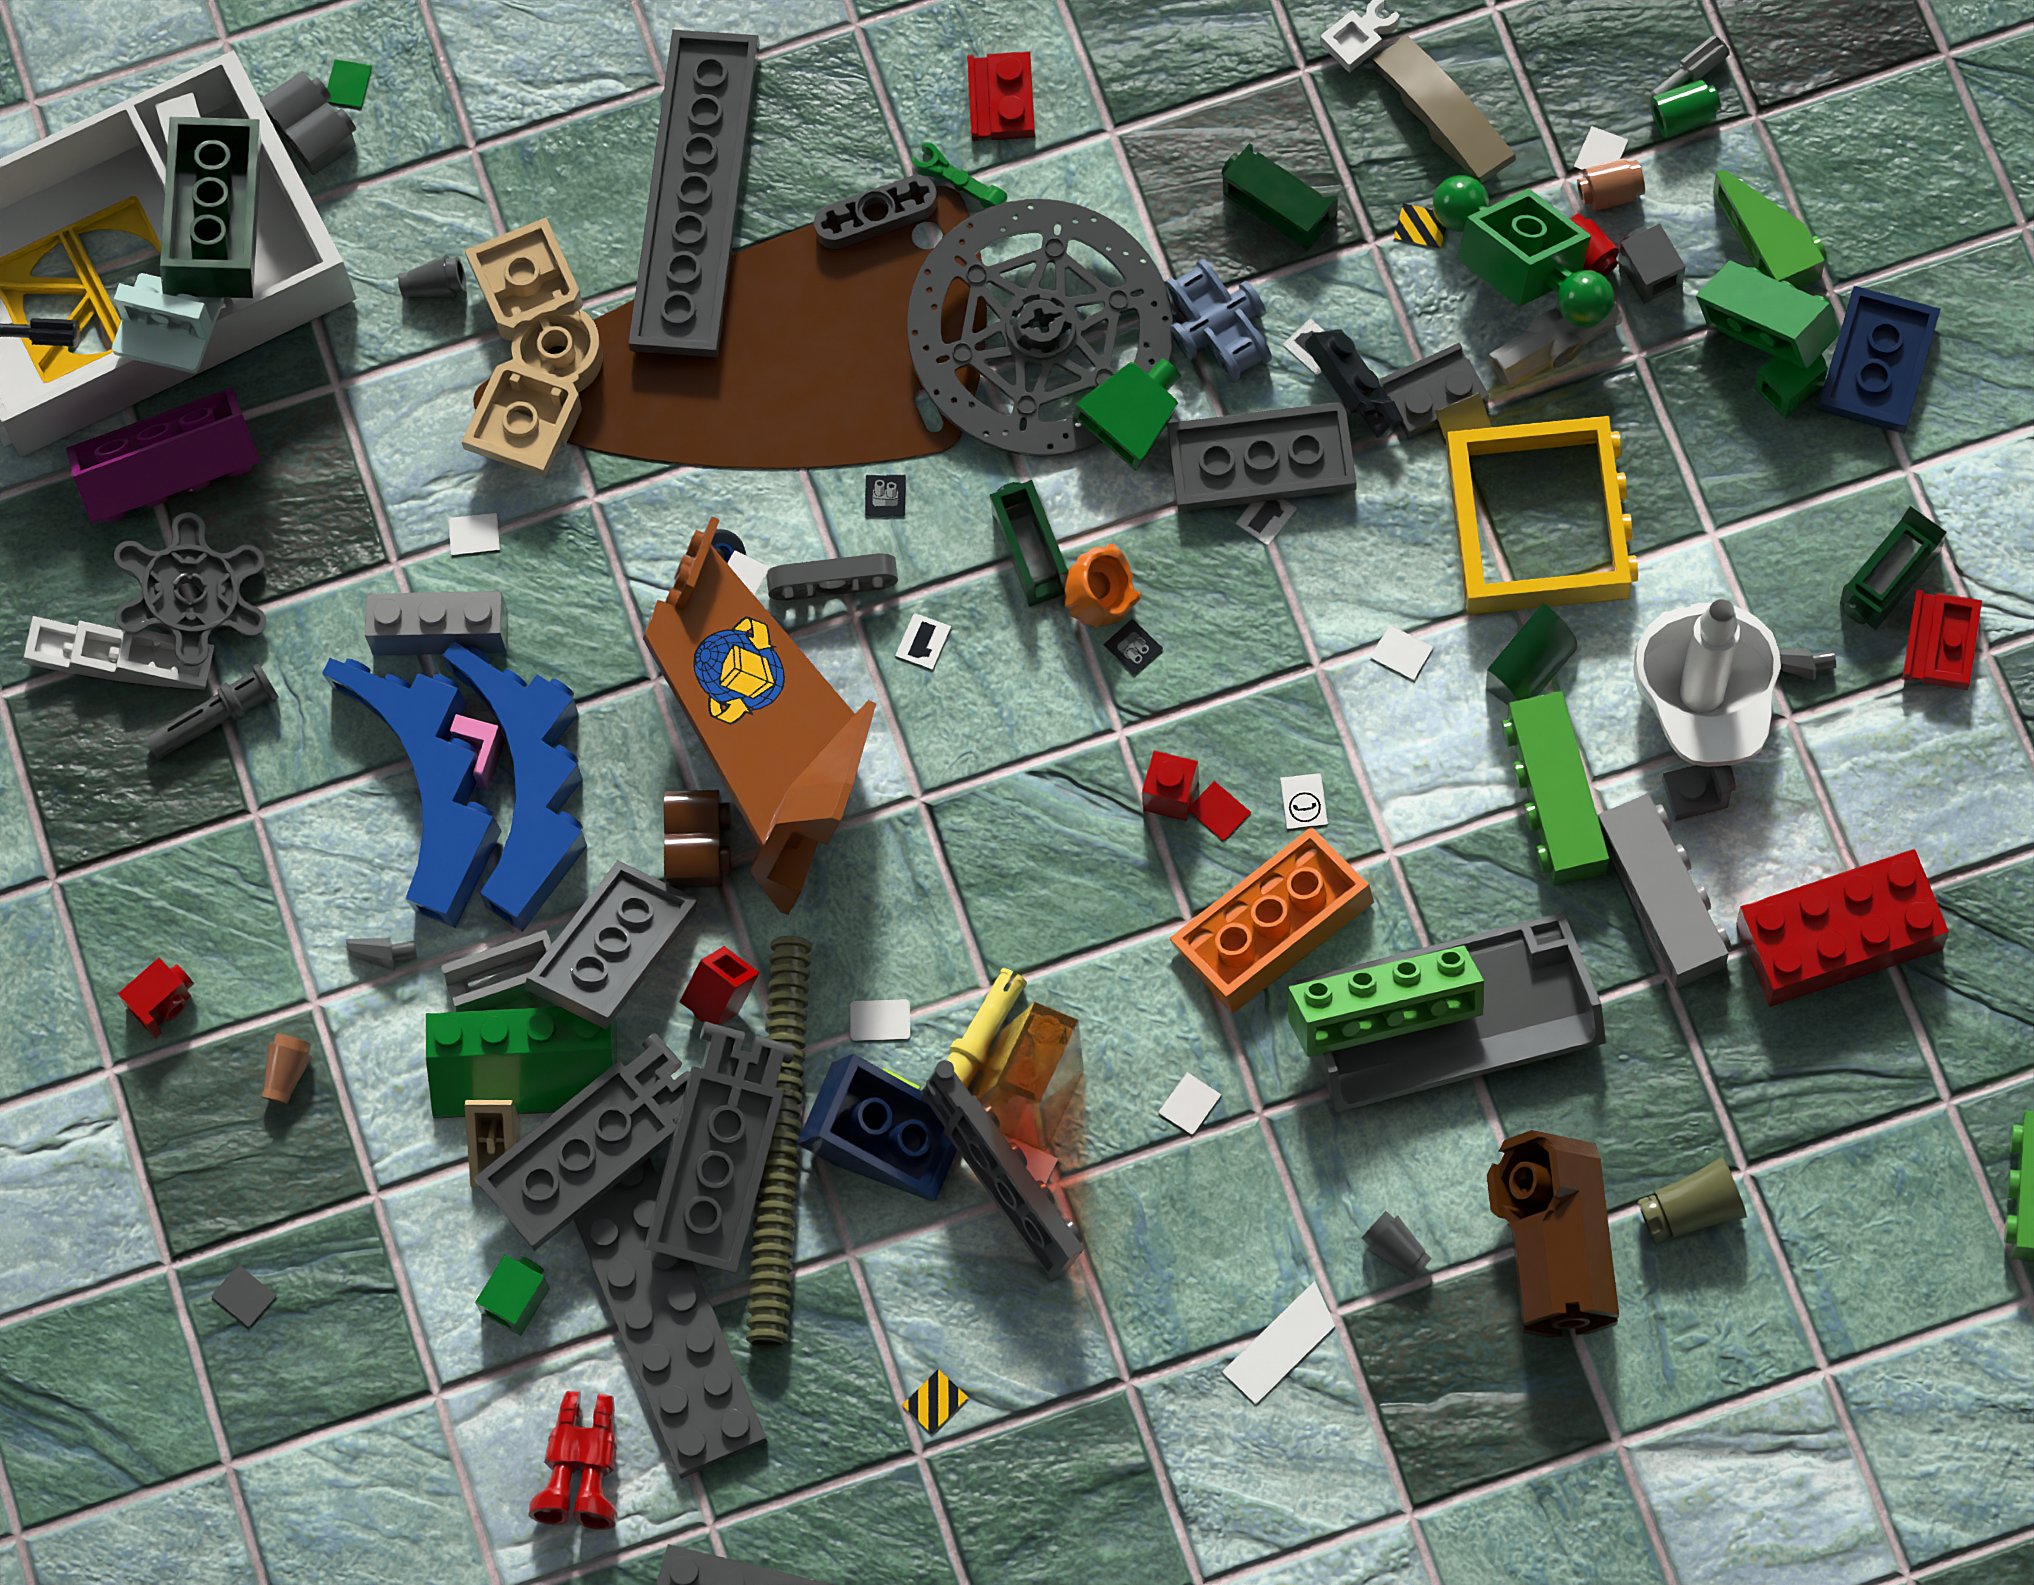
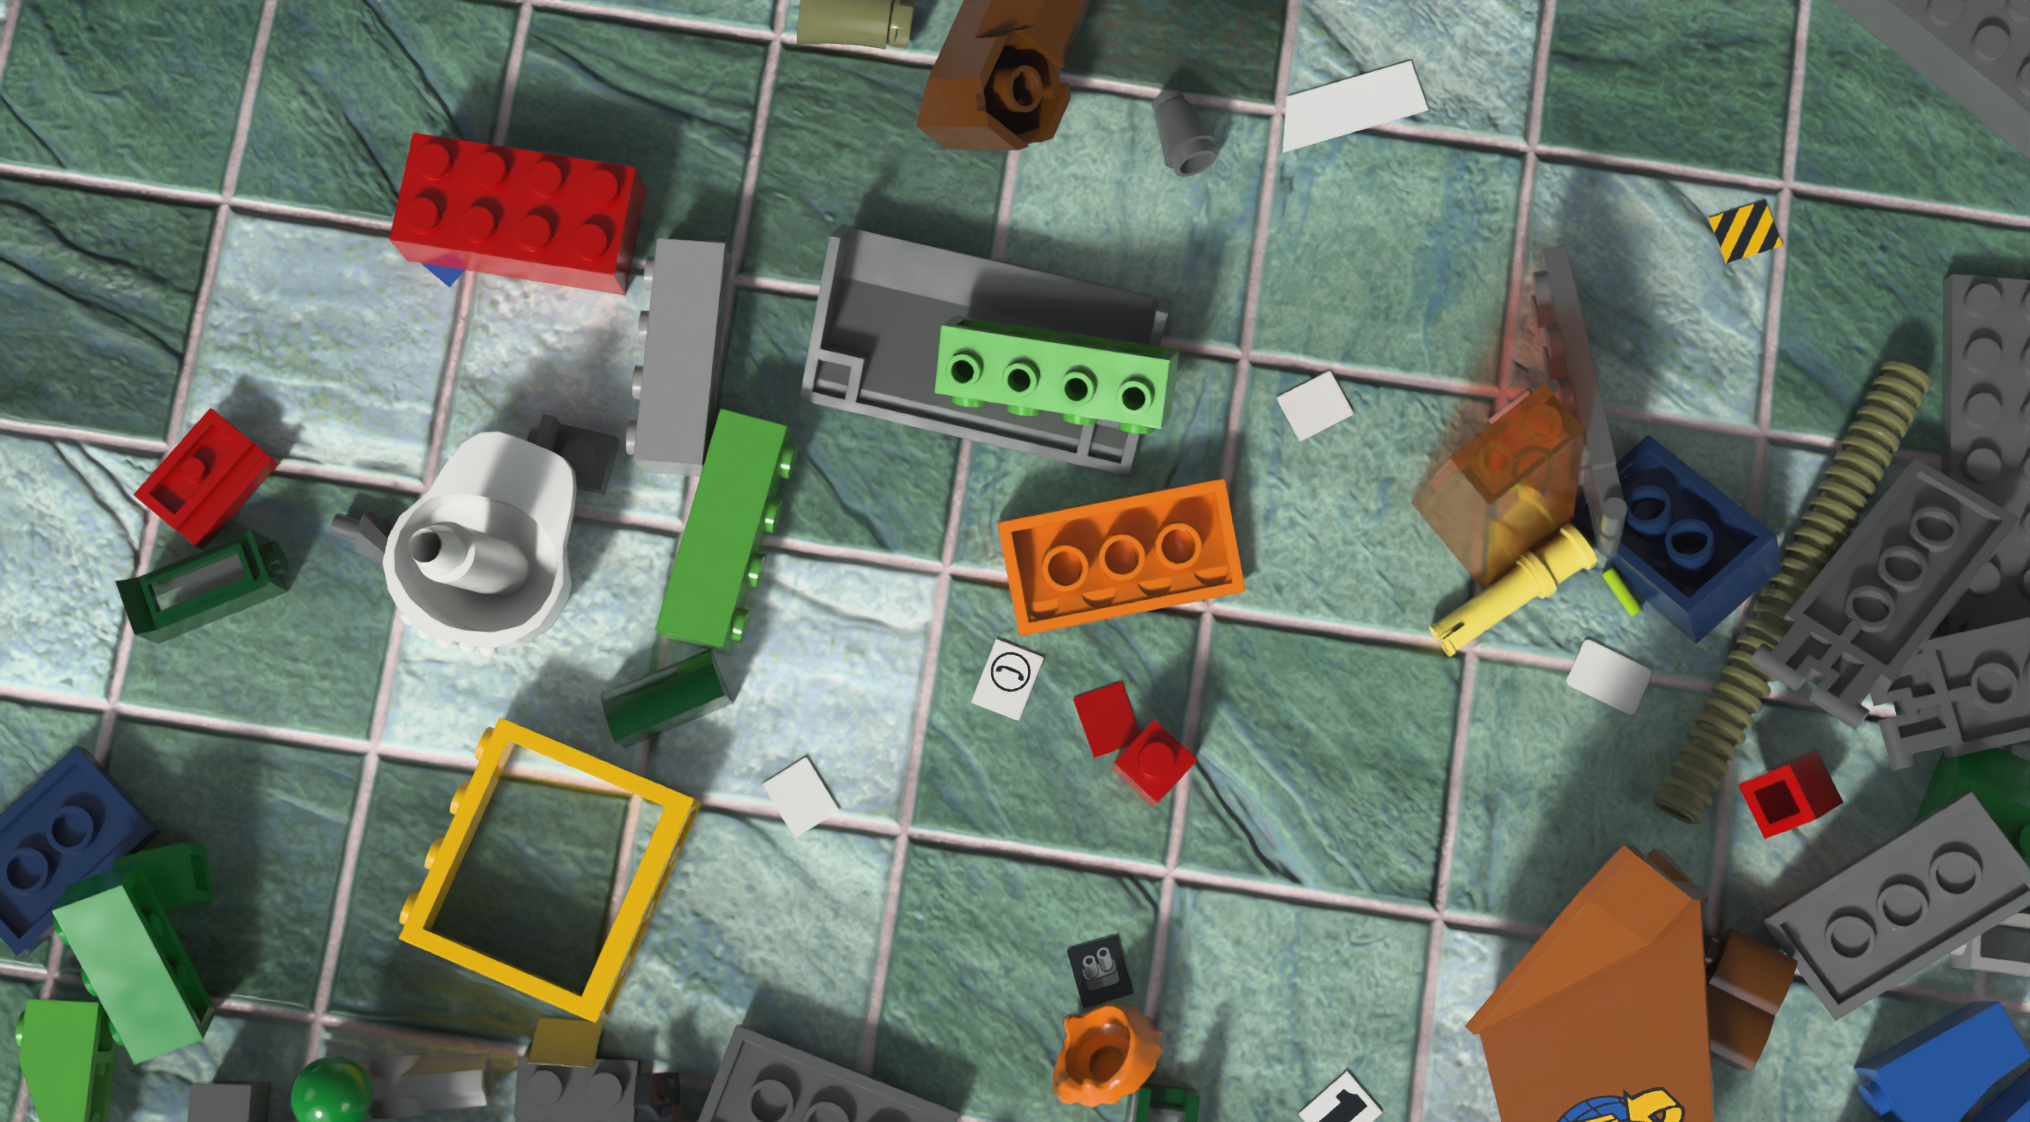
camera: 160 degrees left, 10 degrees up
(1266, 518) = (862, 1047): clear sticker -> none

